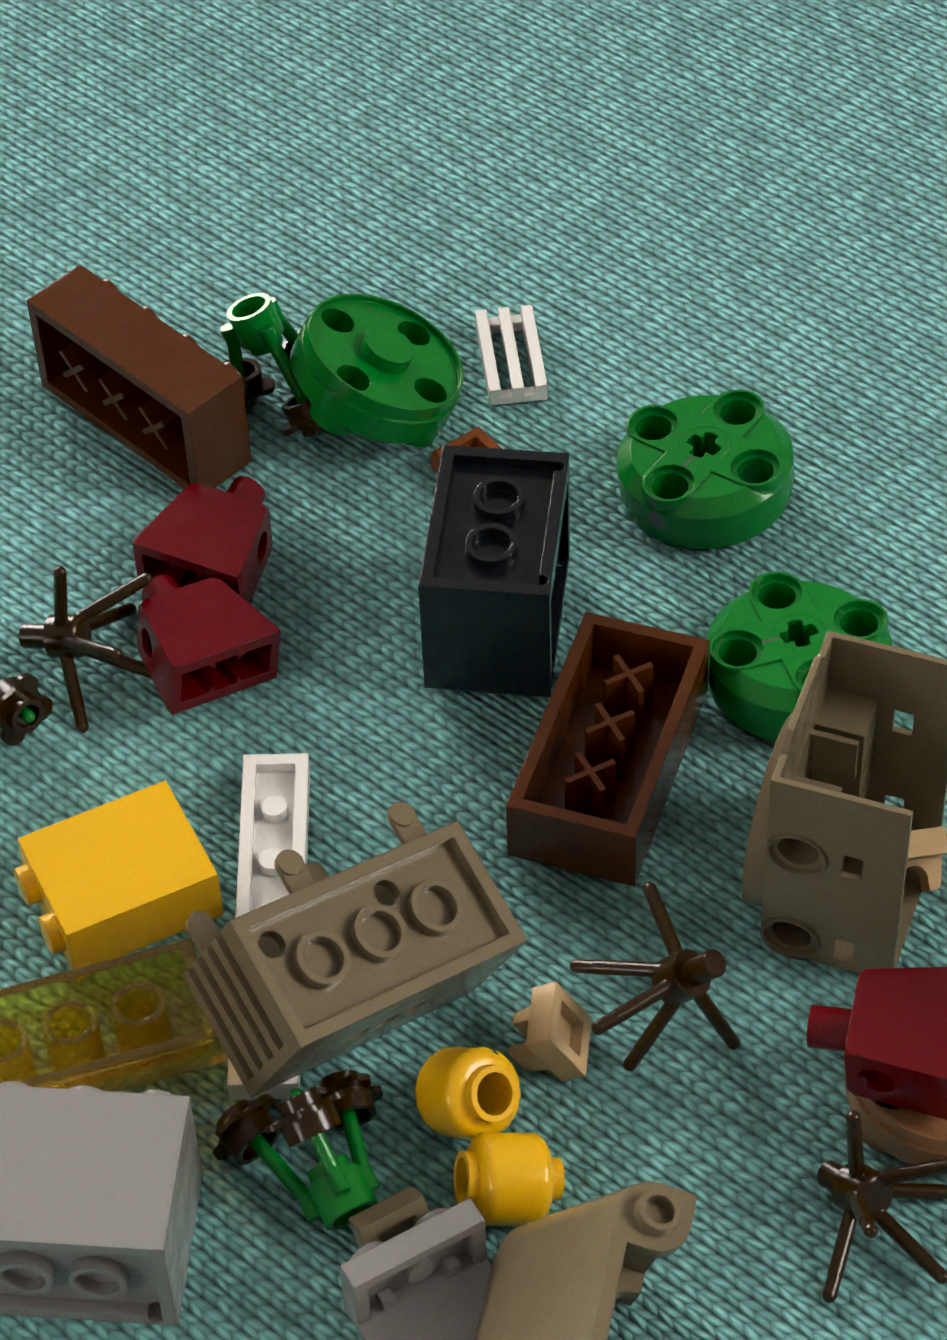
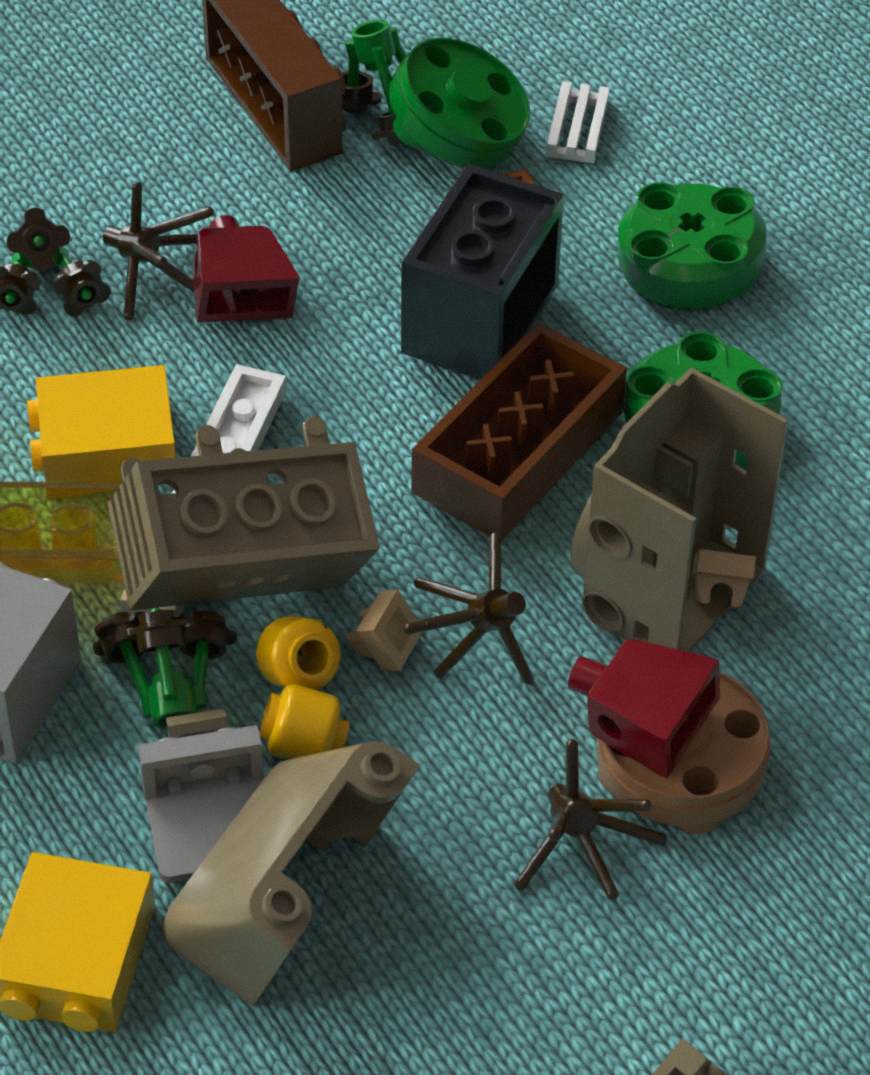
camera: 15 degrees right, 0 degrees up
(210, 536) = (282, 198): dark red torso -> none

